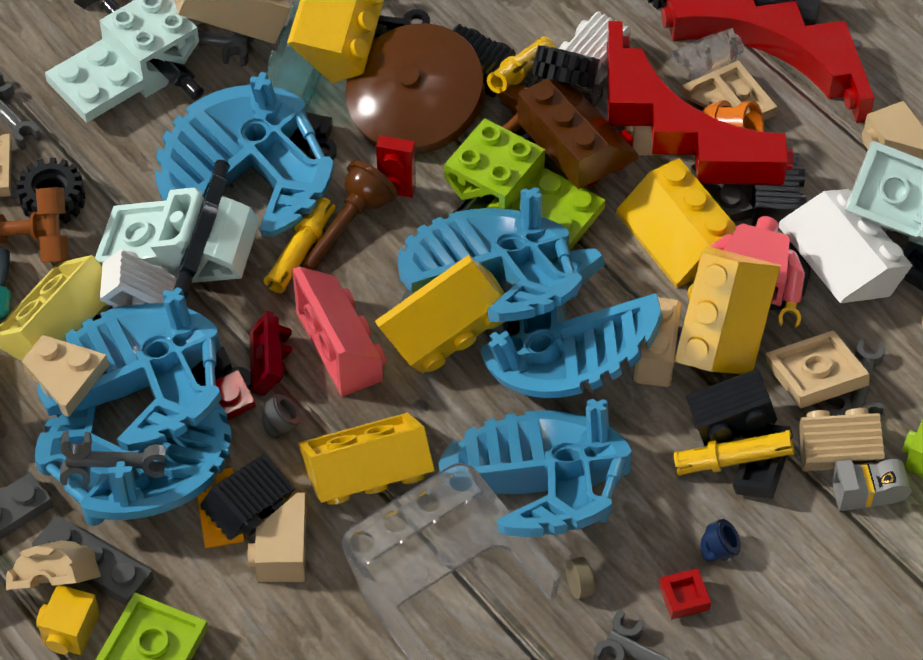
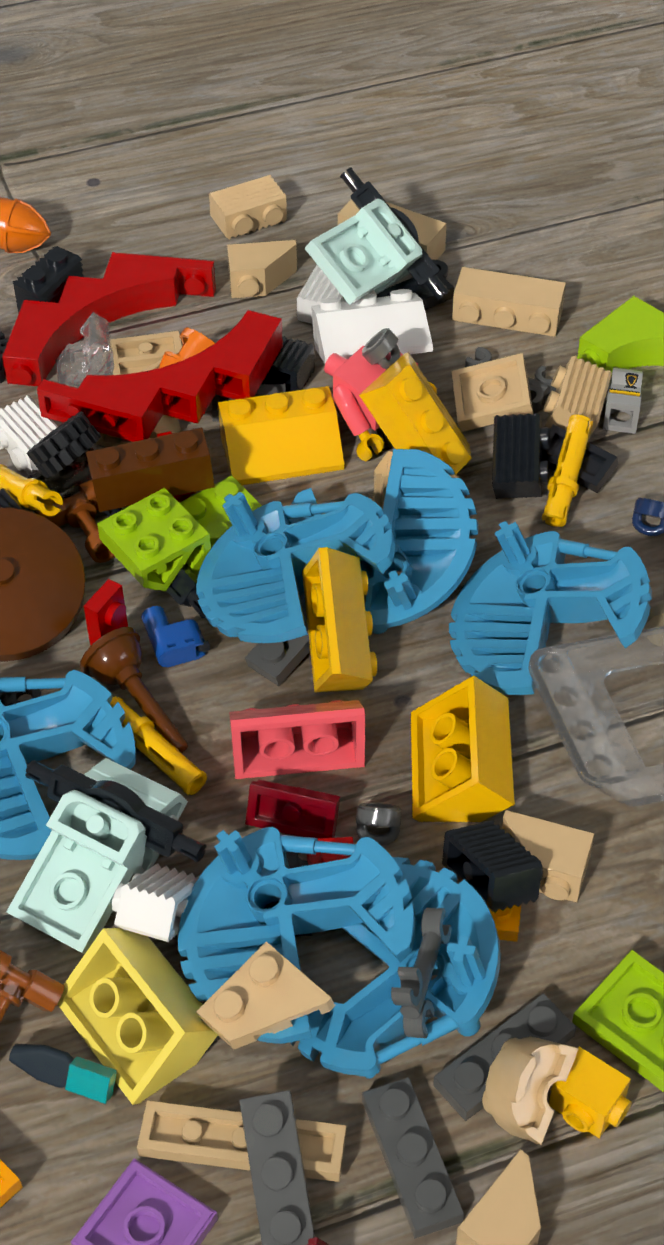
camera: 70 degrees left, 5 degrees down
(414, 216) = (173, 642): none -> blue piece
(776, 242) = (380, 346): none -> dark grey tile

